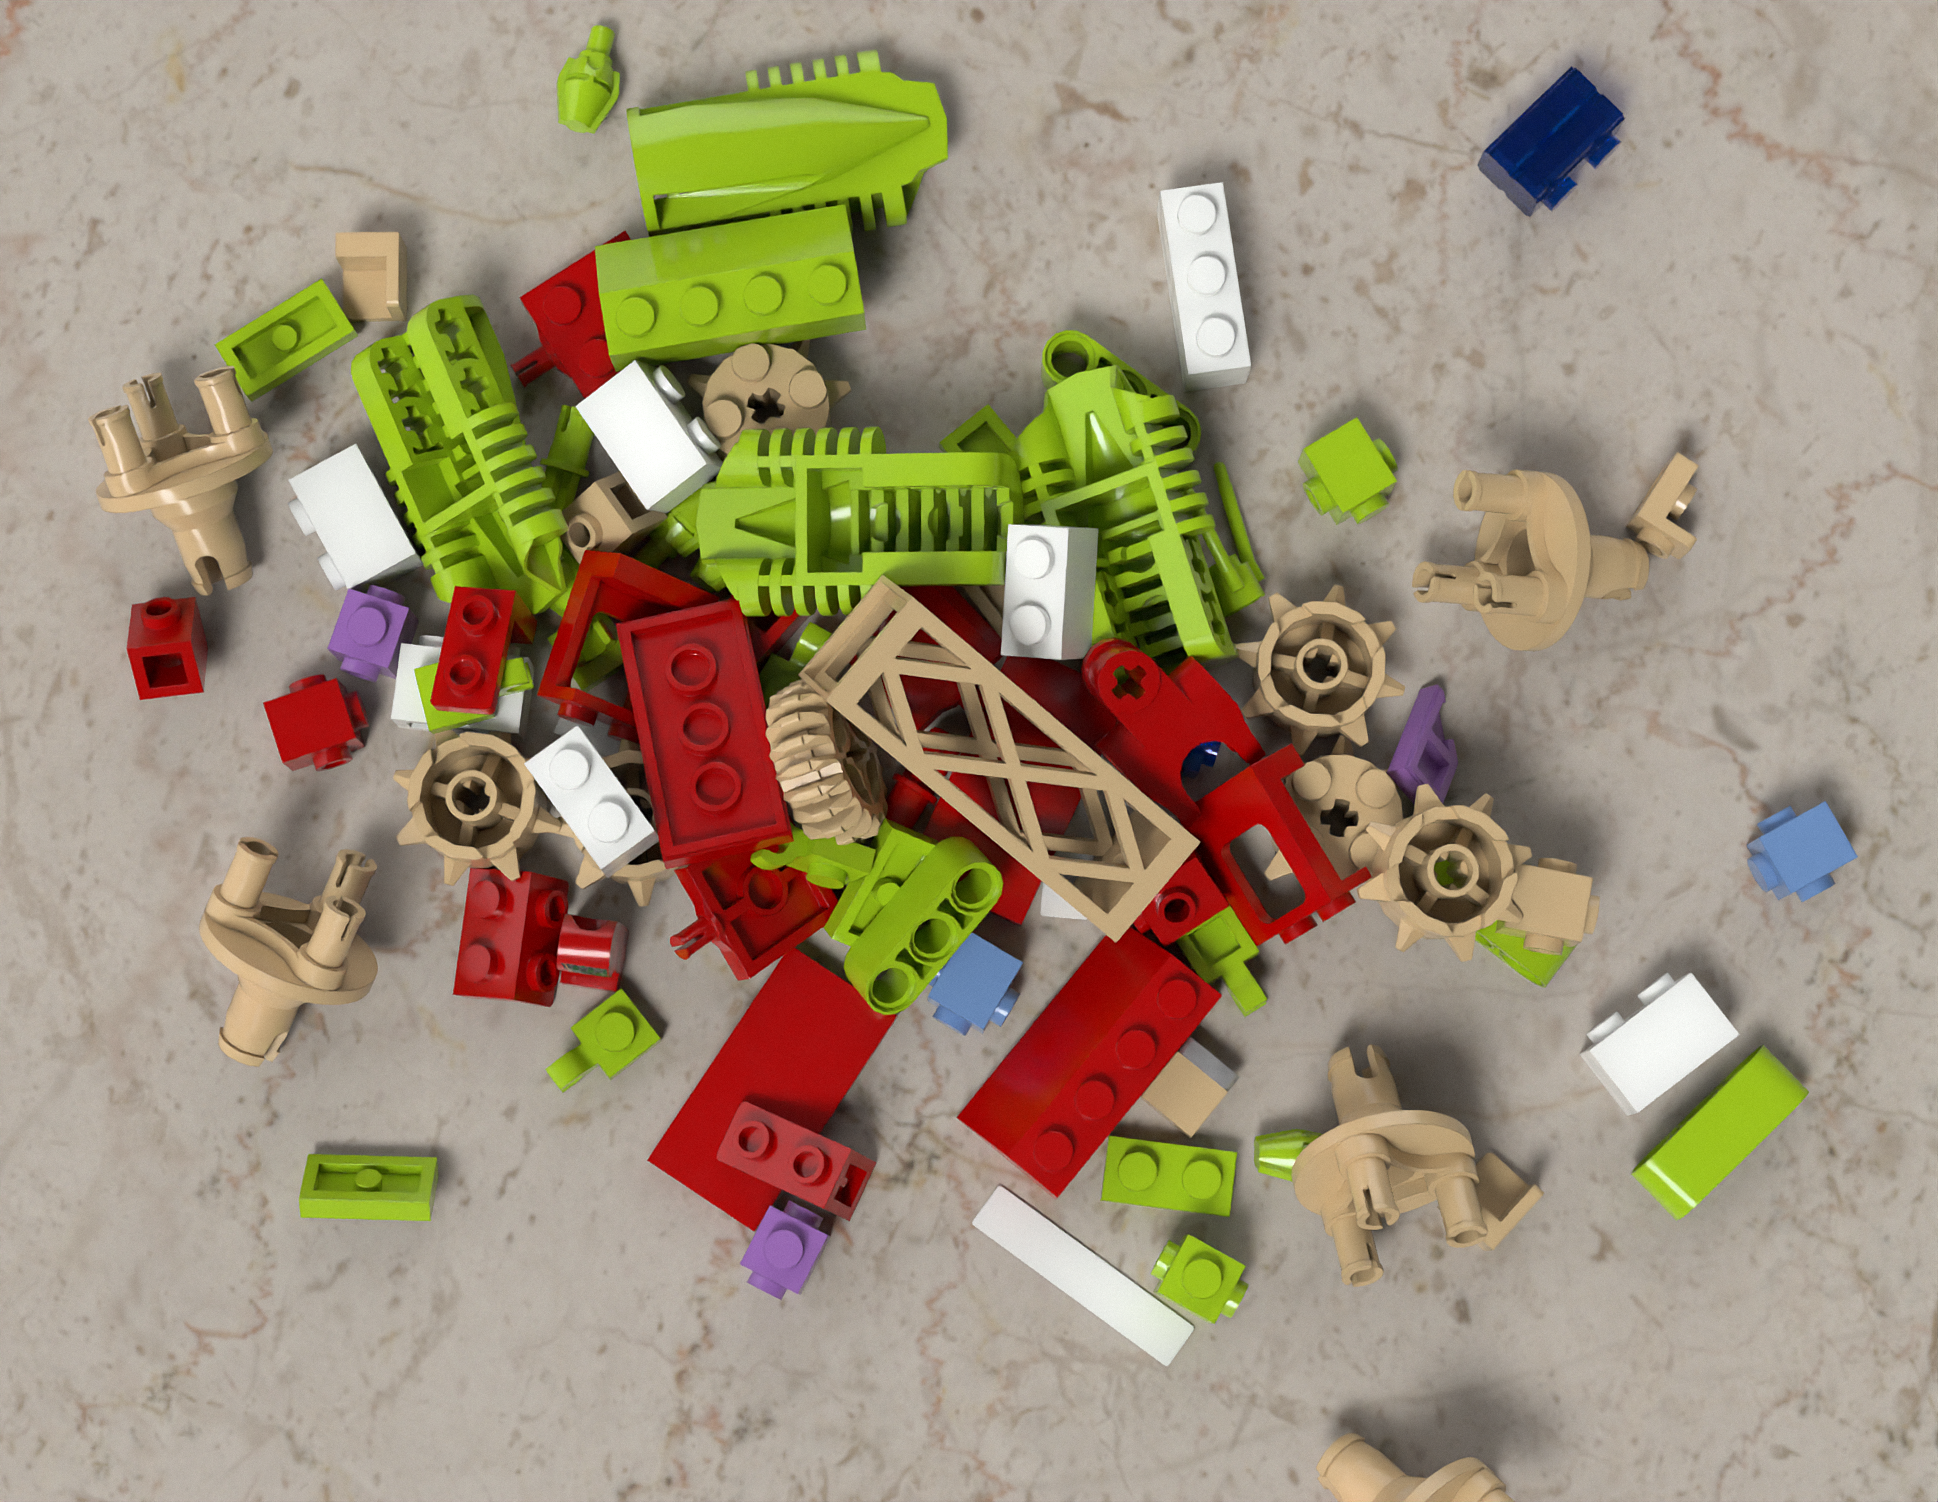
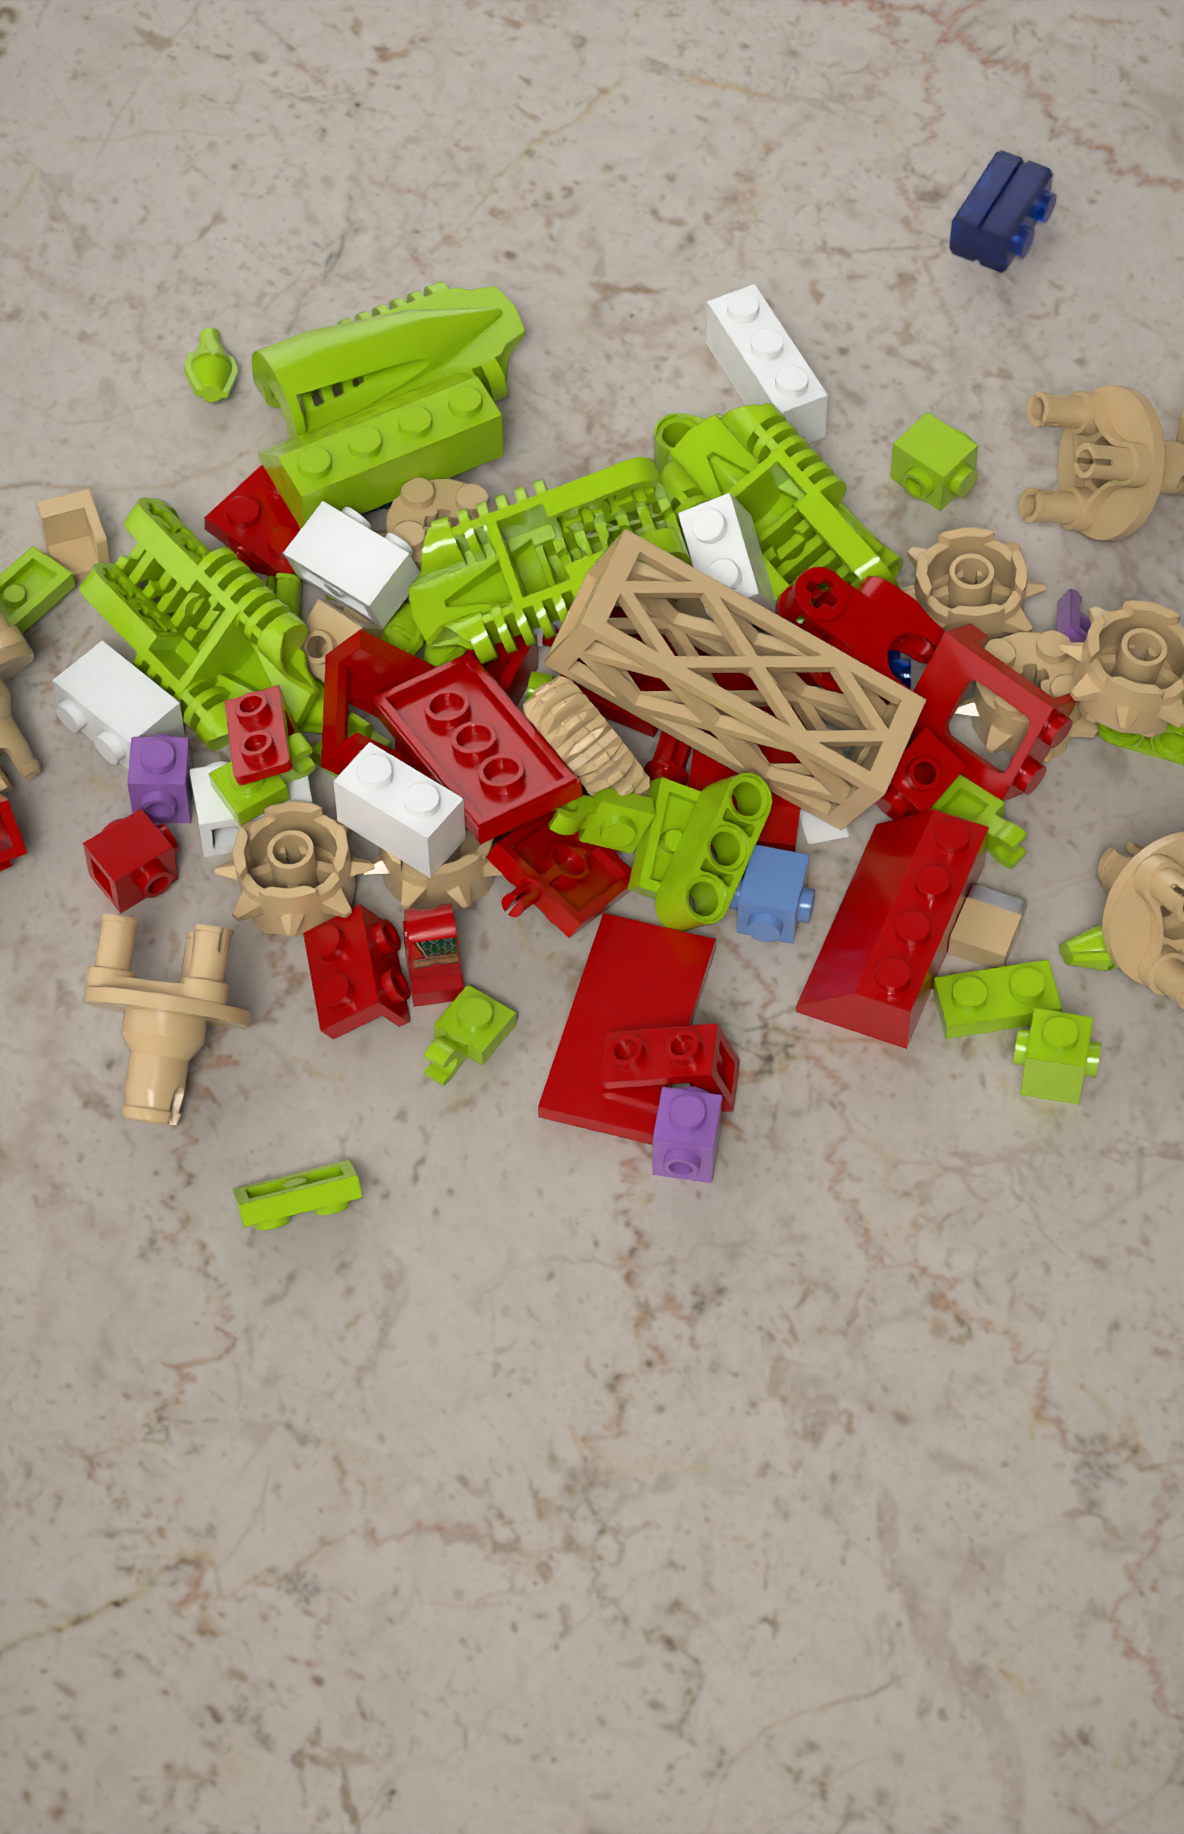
camera: 15 degrees left, 25 degrees down
(1083, 1275) = (954, 1098): white sticker -> none

